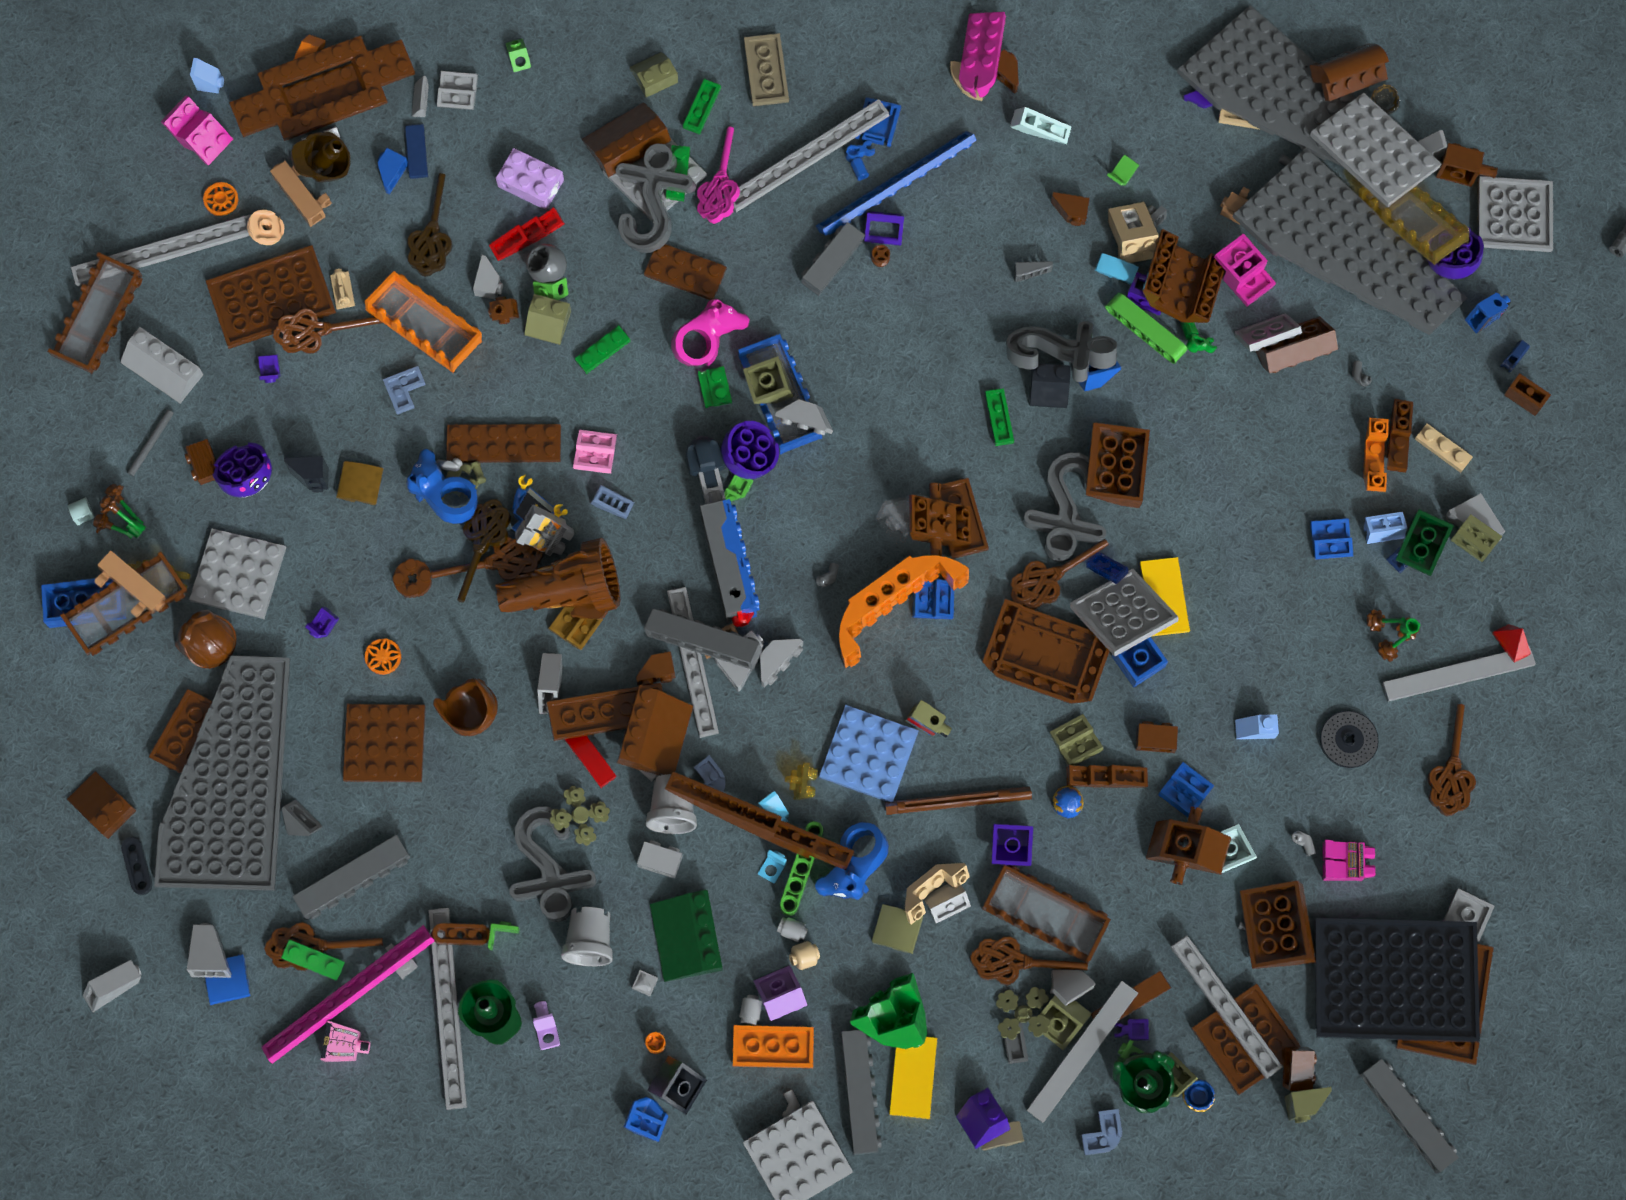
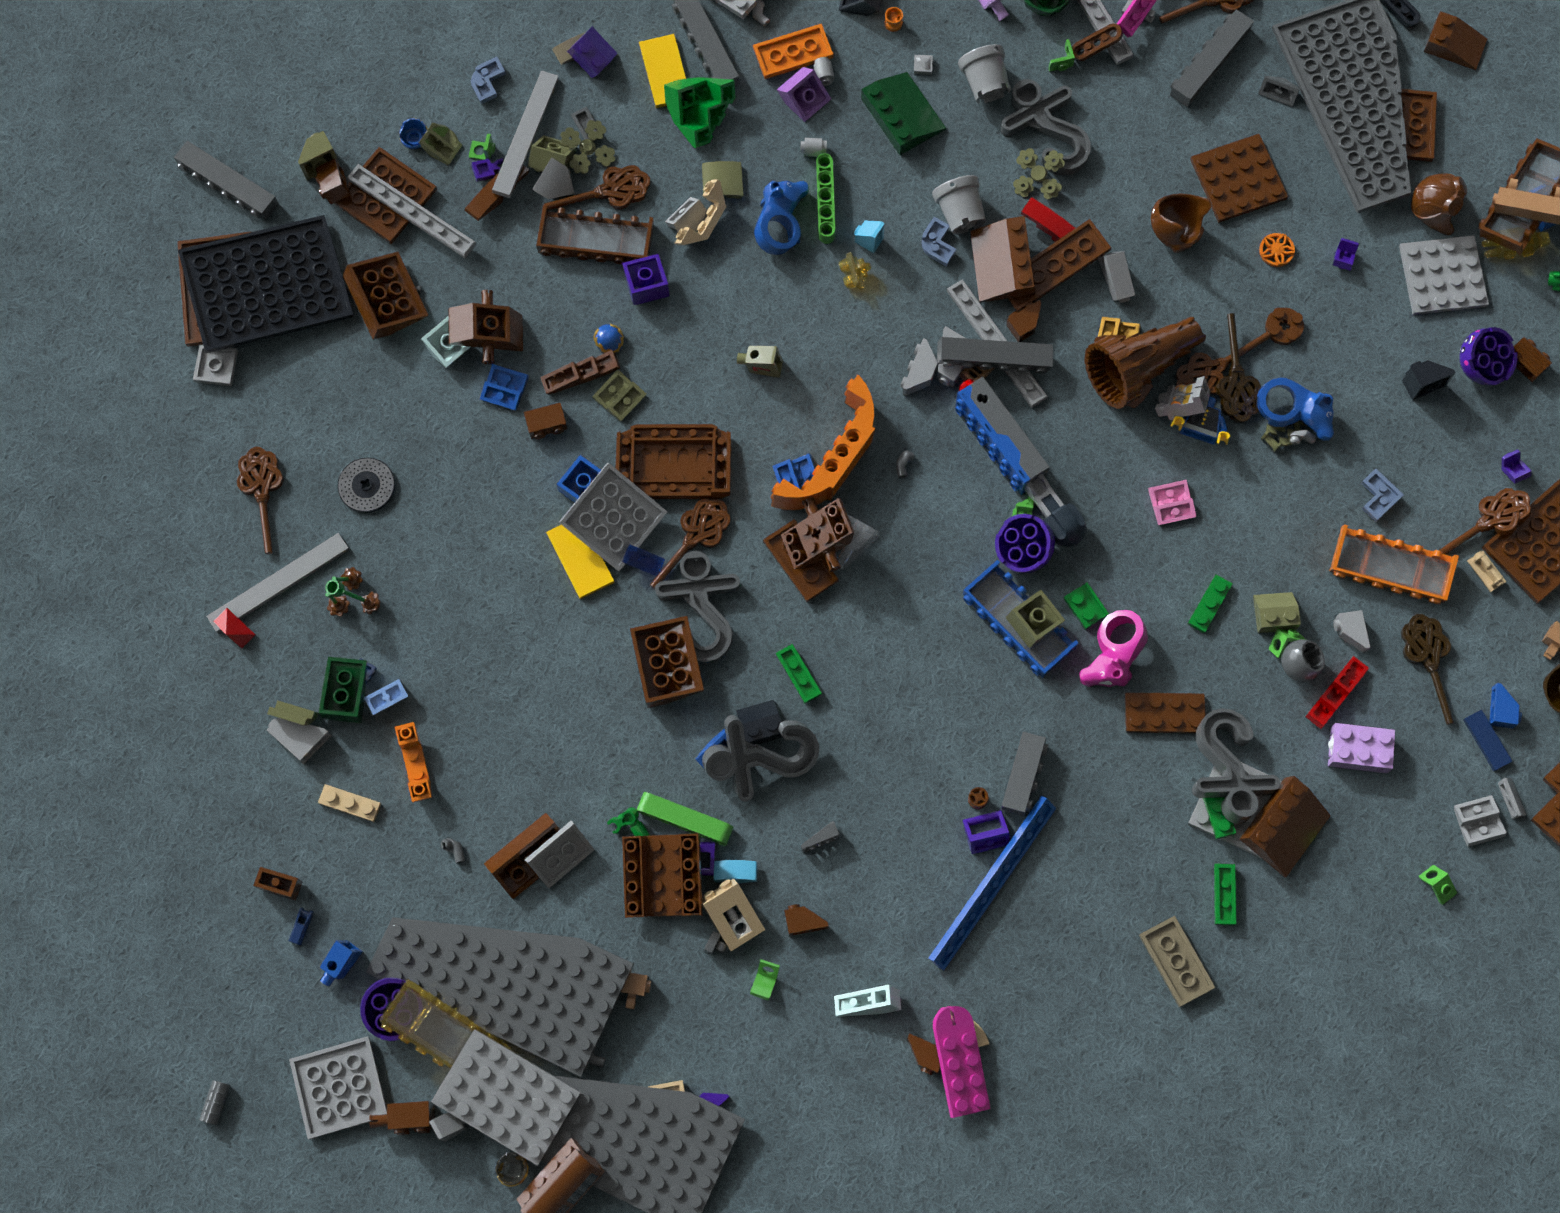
camera: 165 degrees right, 0 degrees up
(359, 482) = (1376, 393): pearl gold slope -> none
(503, 310) = (1322, 602): reddish brown brick -> none
(504, 443) = (1261, 479): reddish brown plate -> none
(609, 508) = (1138, 467): sand blue slope -> none
(654, 74) = (1291, 913): olive slope -> none
(660, 859) = (952, 162): light grey brick -> none
(712, 202) = (1172, 800): dark pink piece -> none
(759, 821) = (877, 209): reddish brown slope -> none
(776, 859) = (851, 197): medium azure bracket -> none
(804, 955) = (795, 129): tan head -> none
(805, 415) = (983, 595): light grey slope -> none
(810, 154) = (1093, 878): light grey plate -> none
(854, 155) = (1048, 899): blue bar -> none
(868, 754) = (805, 318): medium blue plate -> none
(886, 128) = (1037, 943): blue container -> none
(958, 800) = (707, 305): reddish brown piece -> none
(1145, 1080) = (463, 124): dark green piece -> none
(1245, 270) = (603, 912): dark pink bracket -> none
(1257, 727) = (455, 463): light blue slope -> none
(1305, 841) = (385, 381): light grey arm -> none
(1331, 539) = (436, 670): blue slope -> none
(1347, 861) = (339, 373): dark pink hips -> none
(1399, 435) = (396, 795): reddish brown slope -> none

